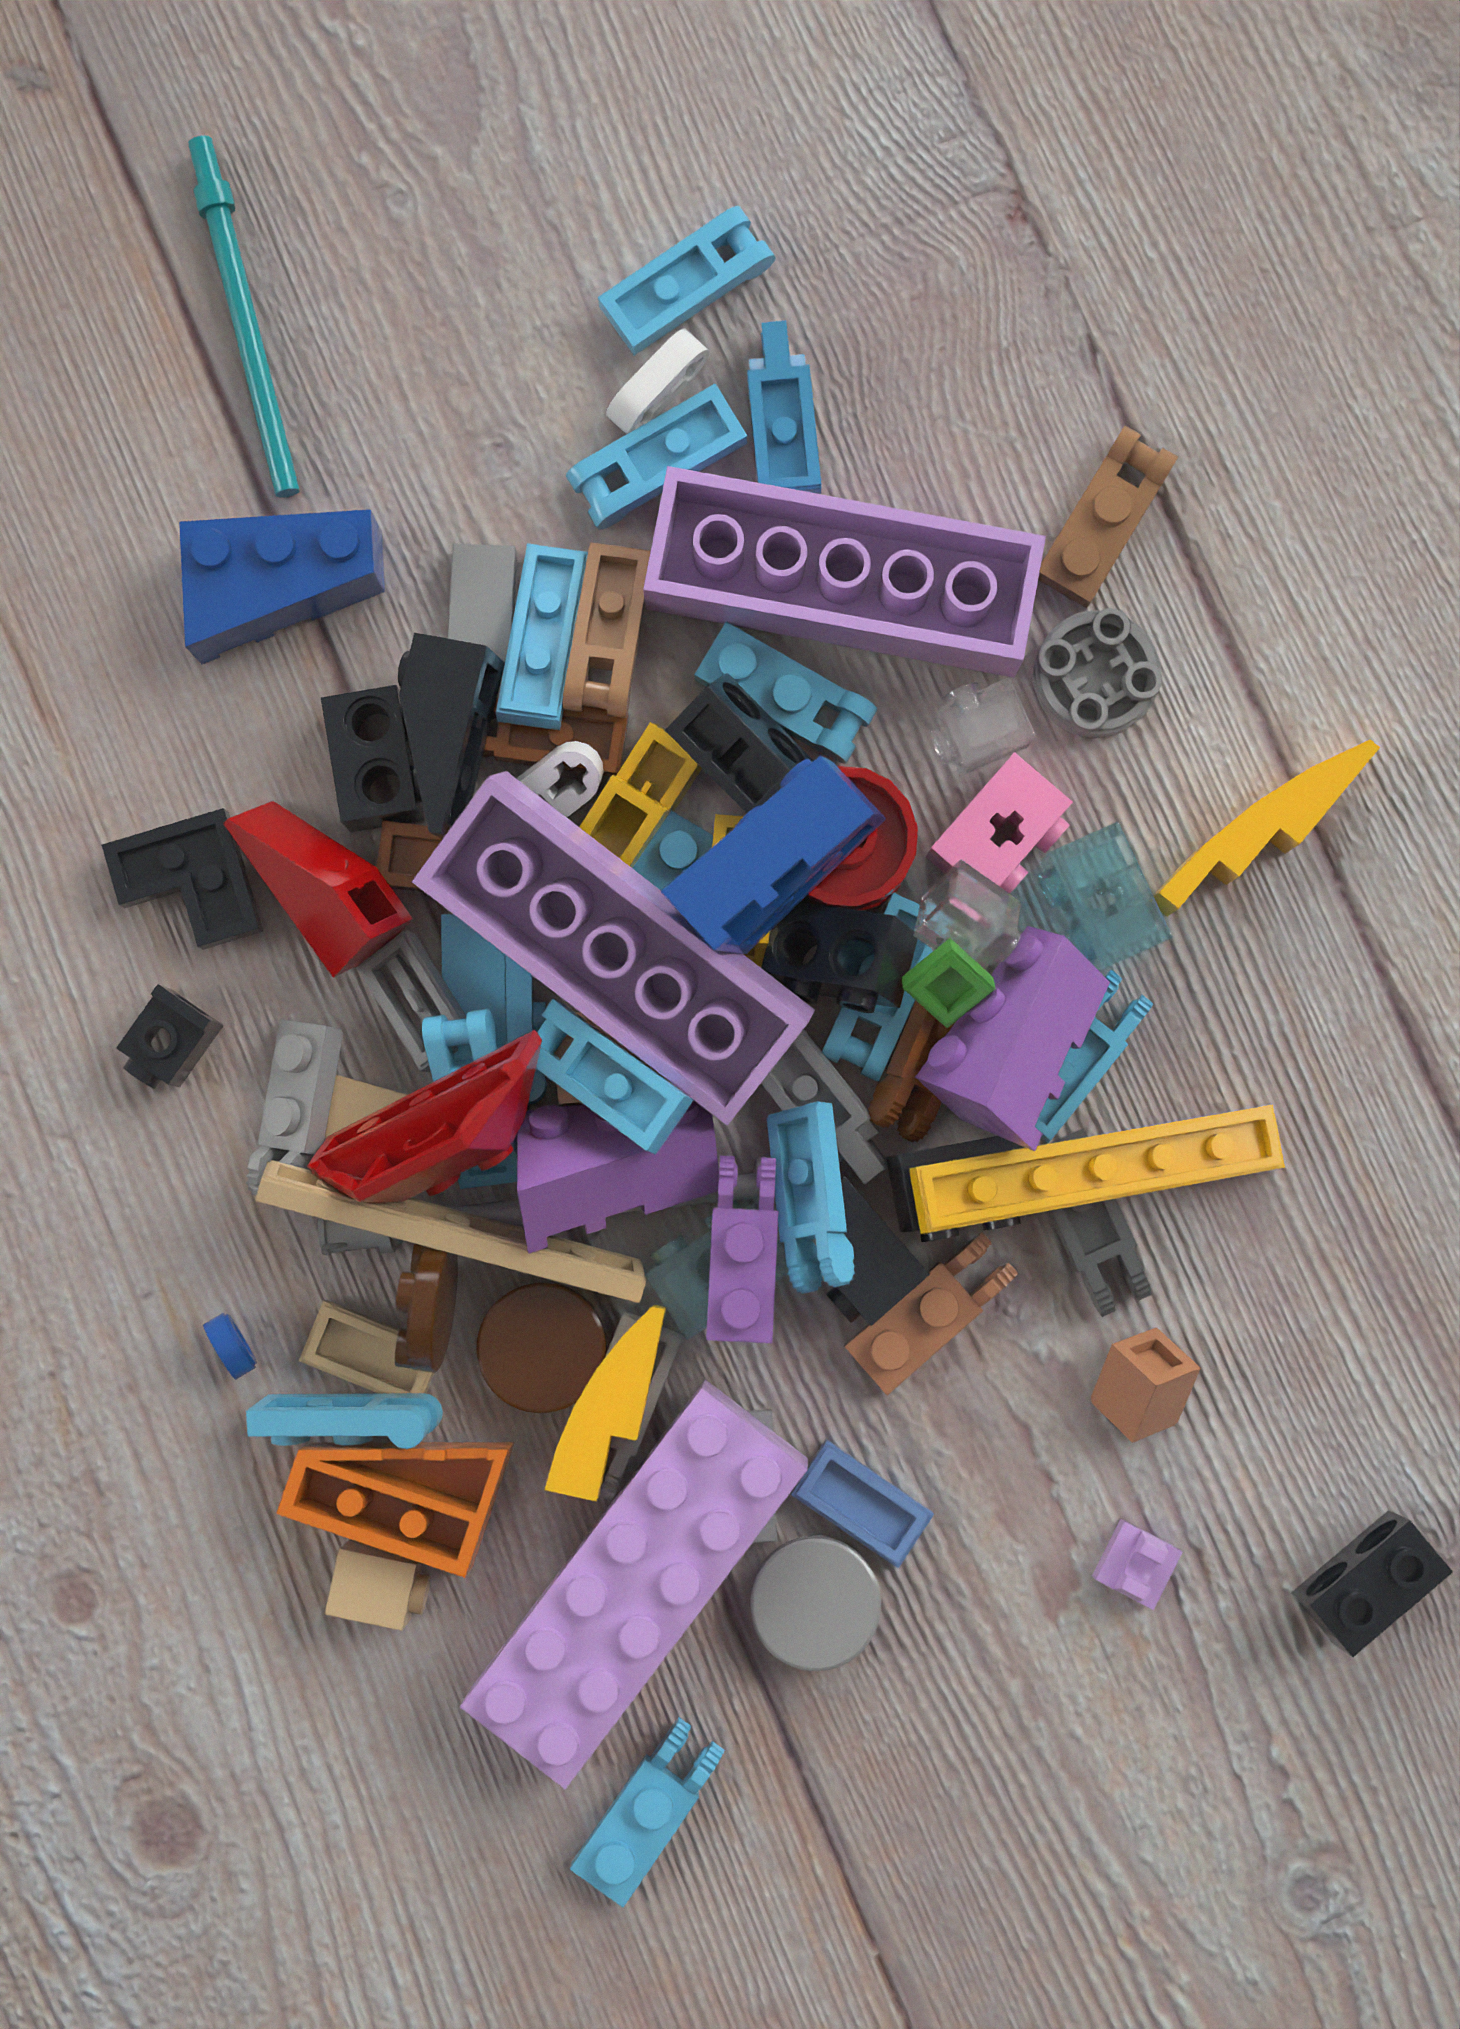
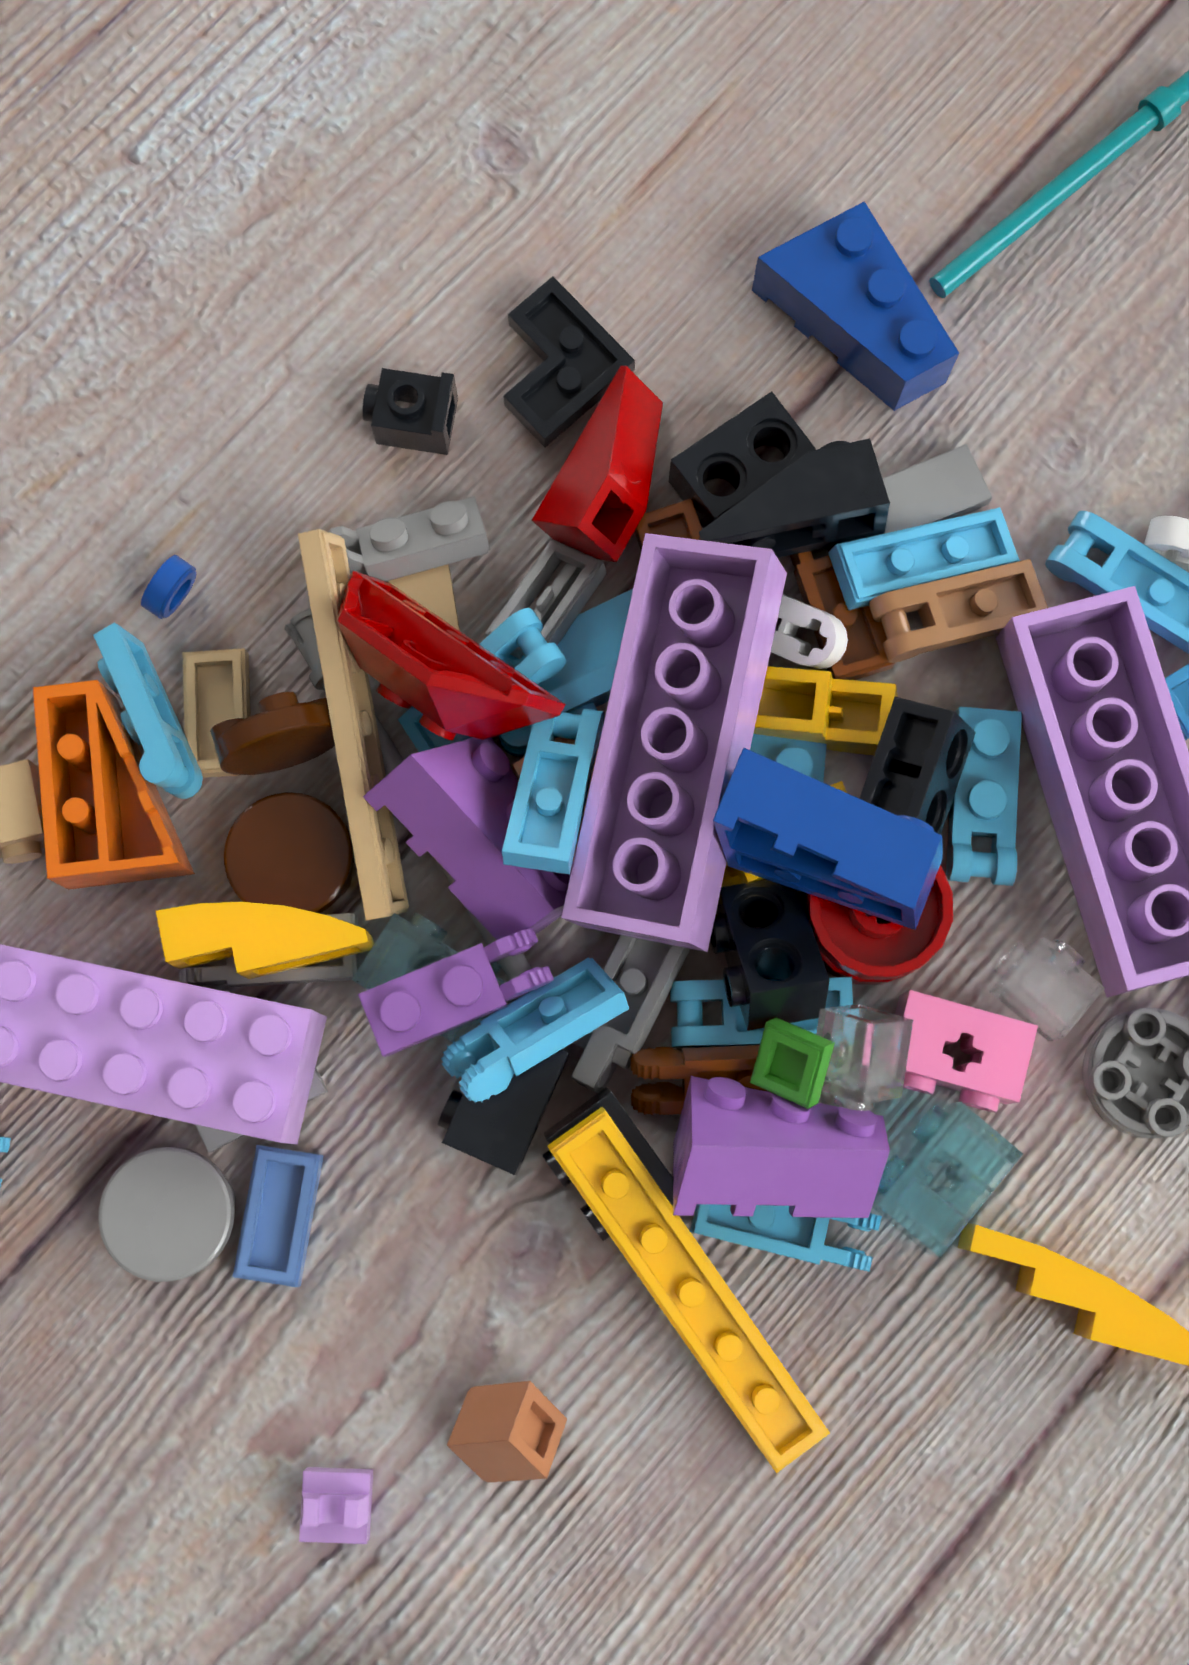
camera: 65 degrees right, 5 degrees down
(926, 1318) = (474, 1194): nougat hinge -> none
(1095, 1234) = (626, 1318): dark grey hinge -> none

